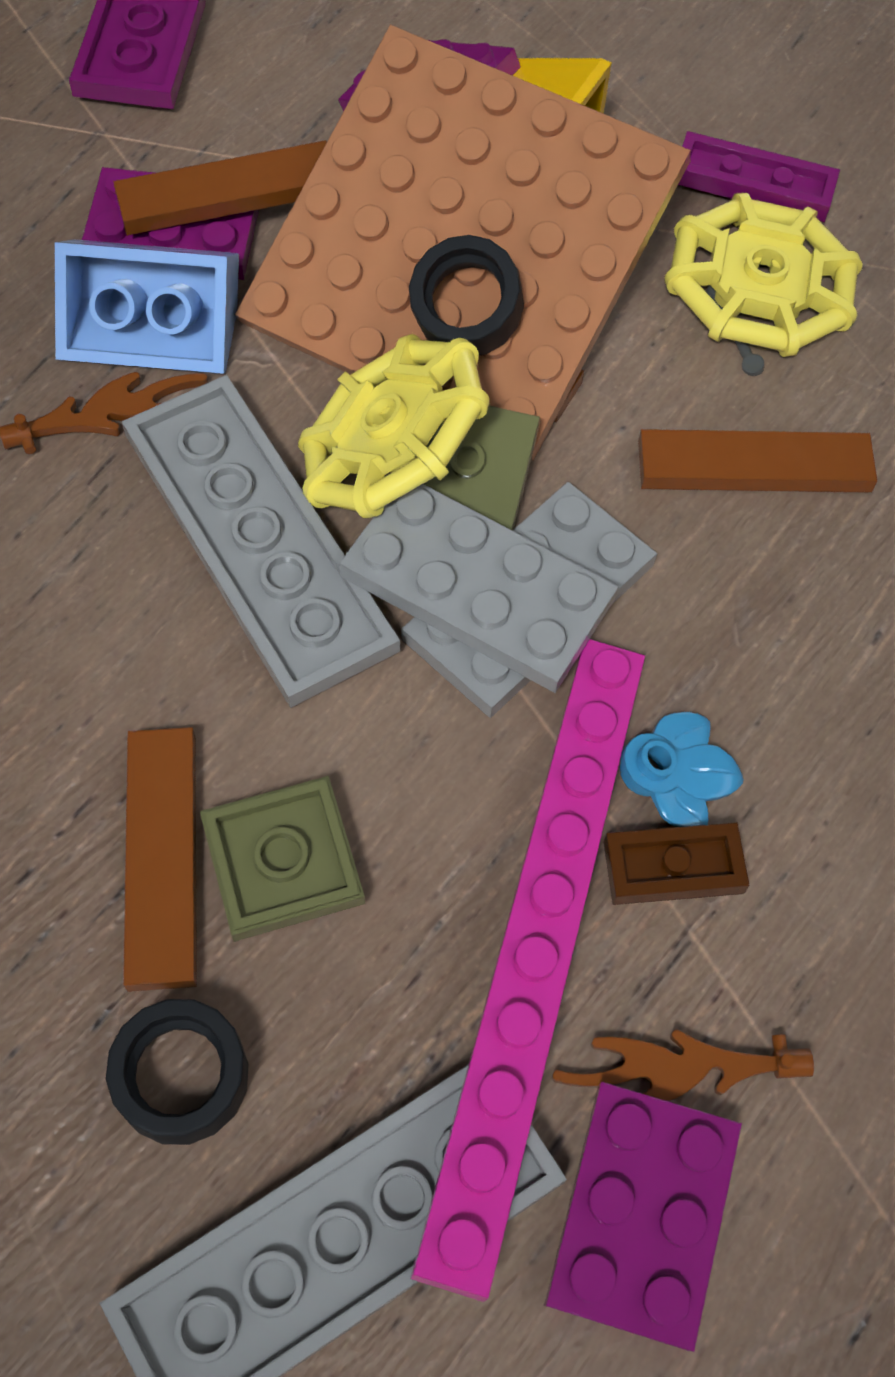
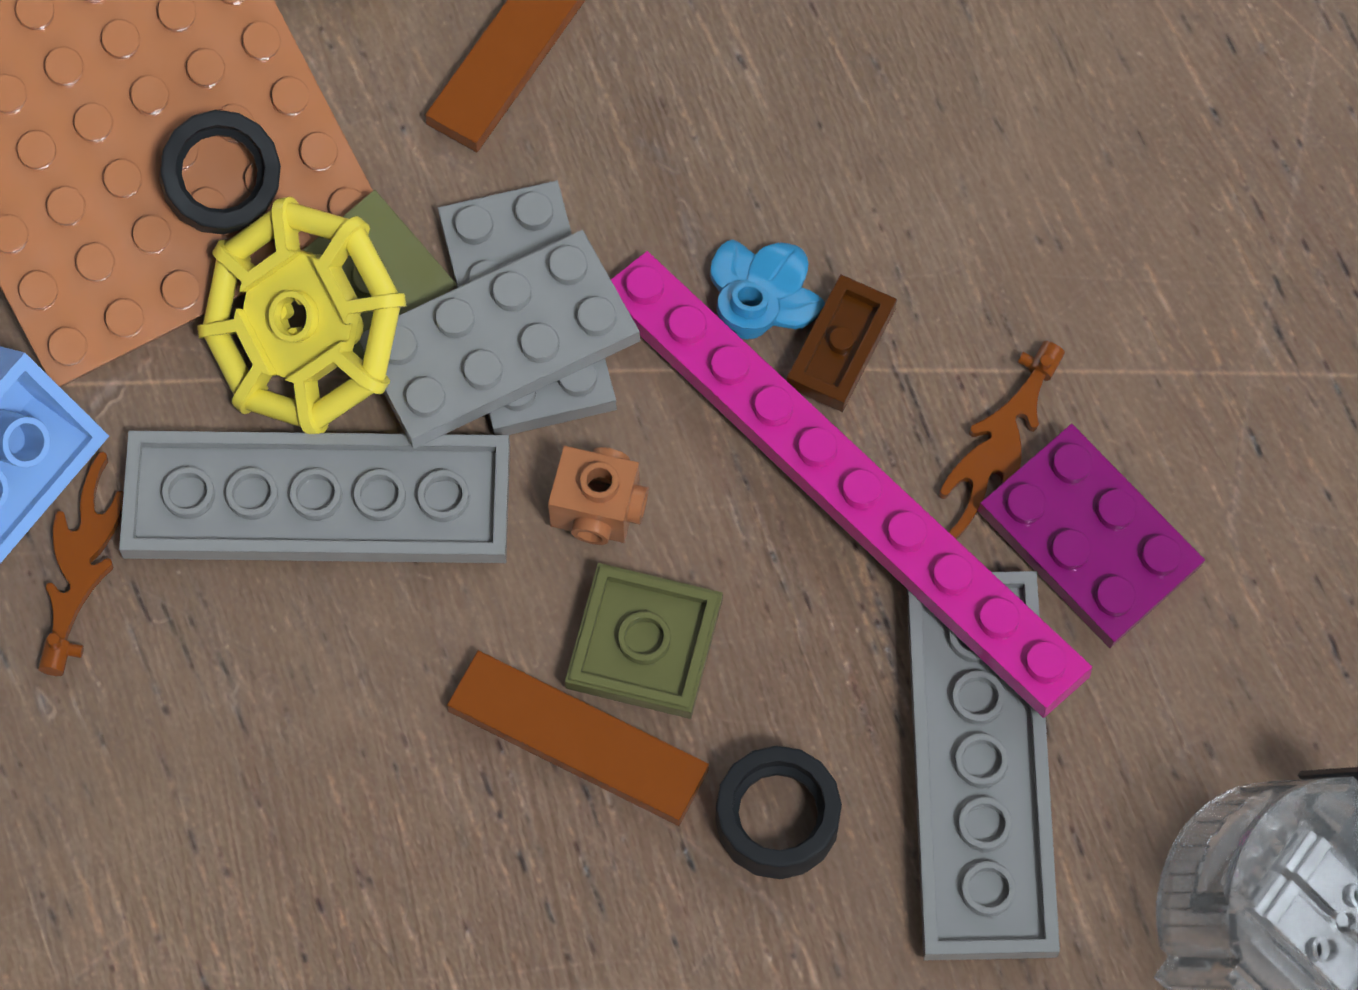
camera: 55 degrees left, 5 degrees up
(387, 736) = (597, 495): none -> nougat brick

